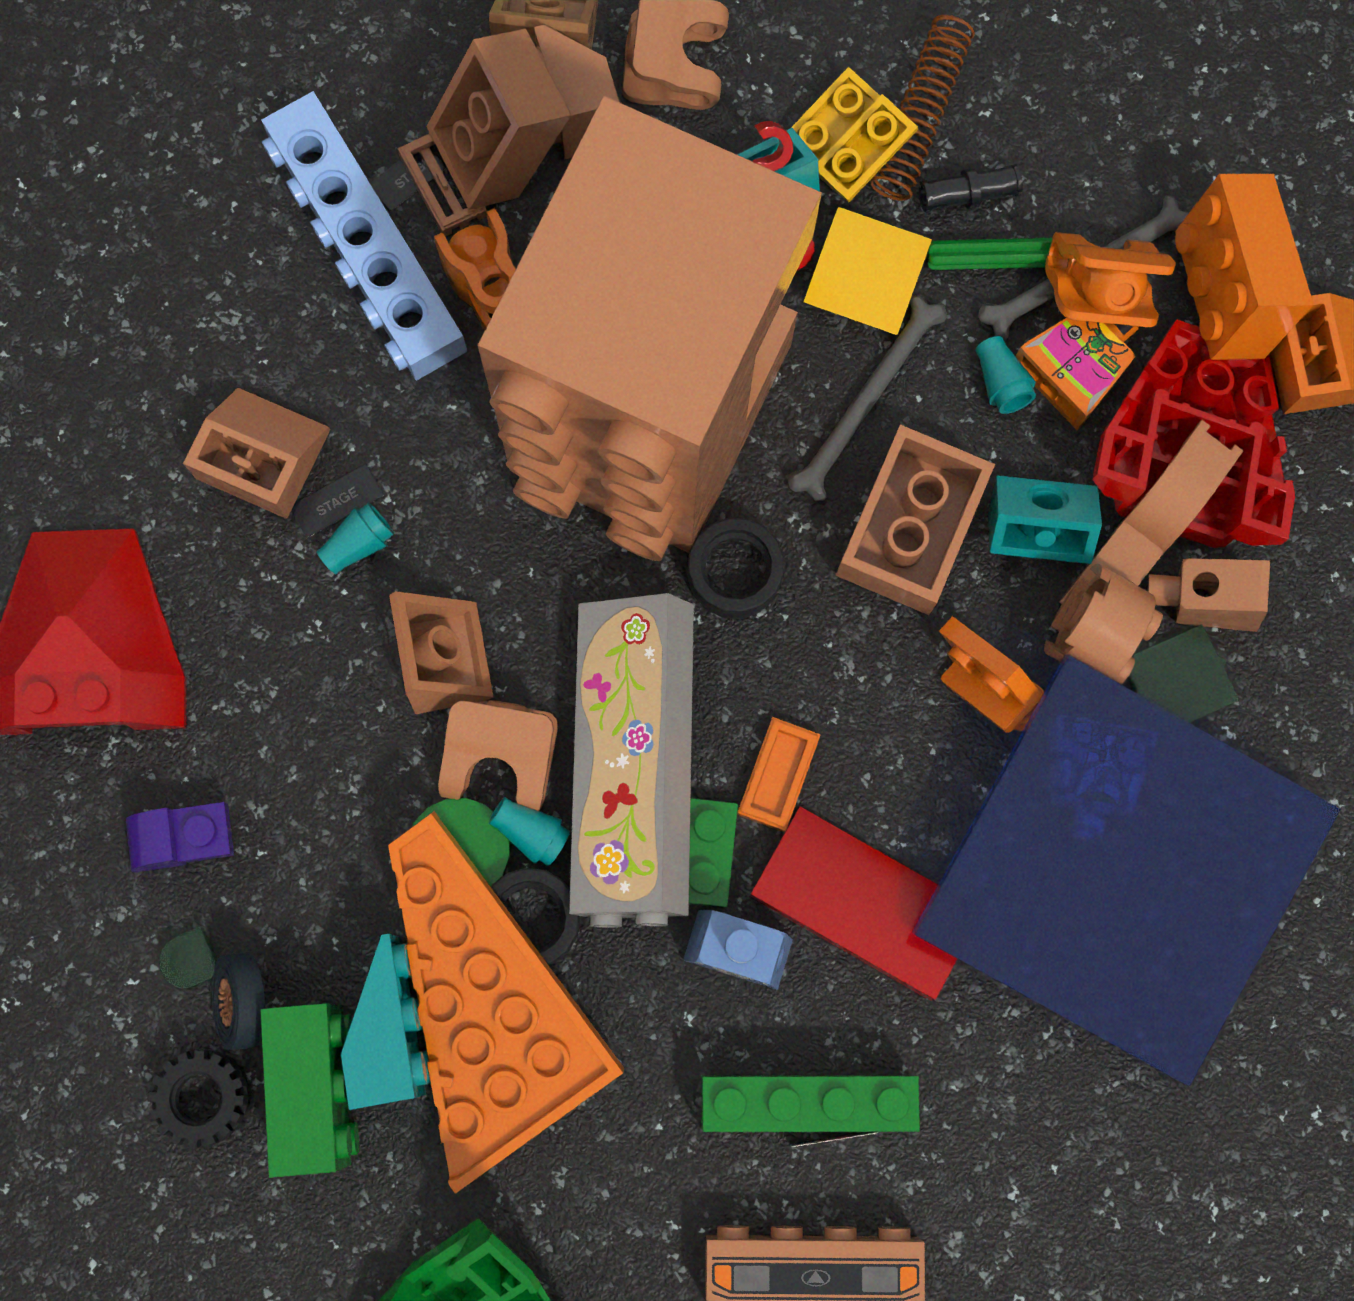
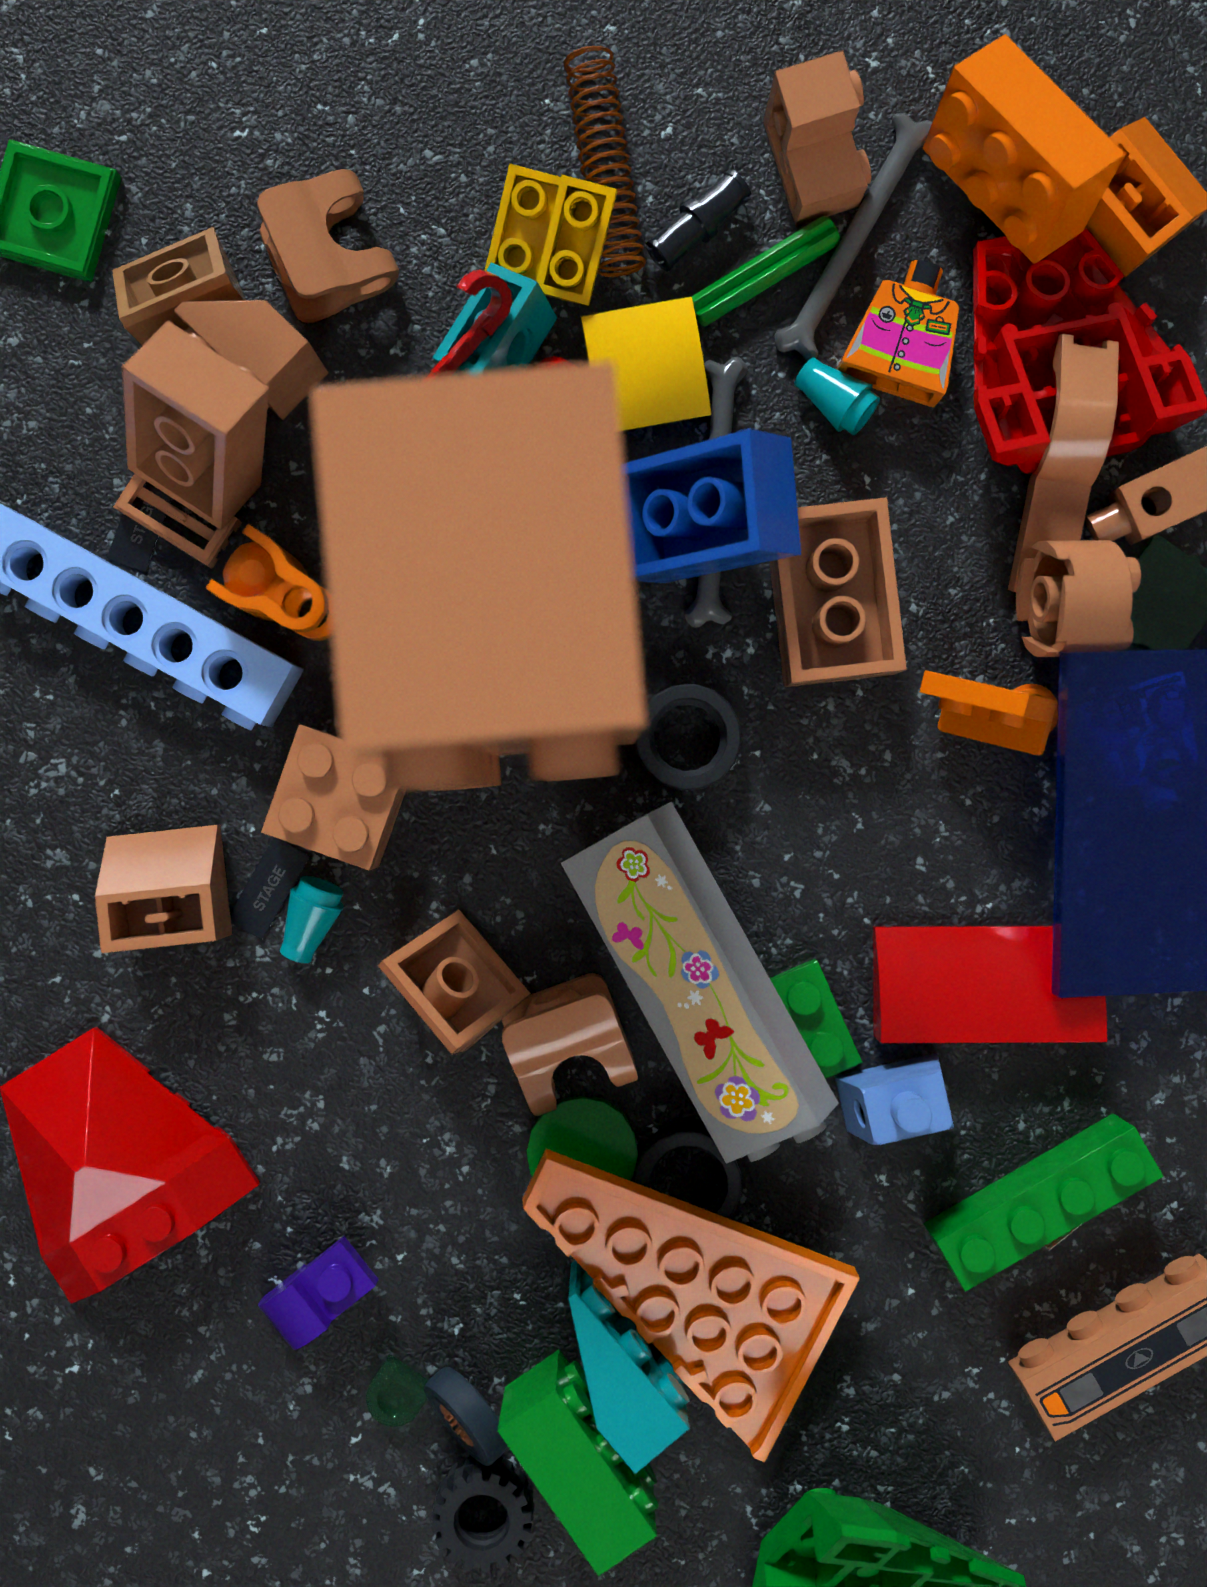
camera: 25 degrees left, 10 degrees up
(436, 457) = (333, 801): none -> nougat brick
(531, 831) = (644, 1101): teal cone -> none
(778, 774) = (838, 909): orange tile -> none
(849, 394) = (712, 507): none -> blue brick
(1044, 519) = (958, 520): teal brick -> none
(1091, 173) = (811, 137): none -> nougat brick
(1103, 281) = (892, 246): orange piece -> none

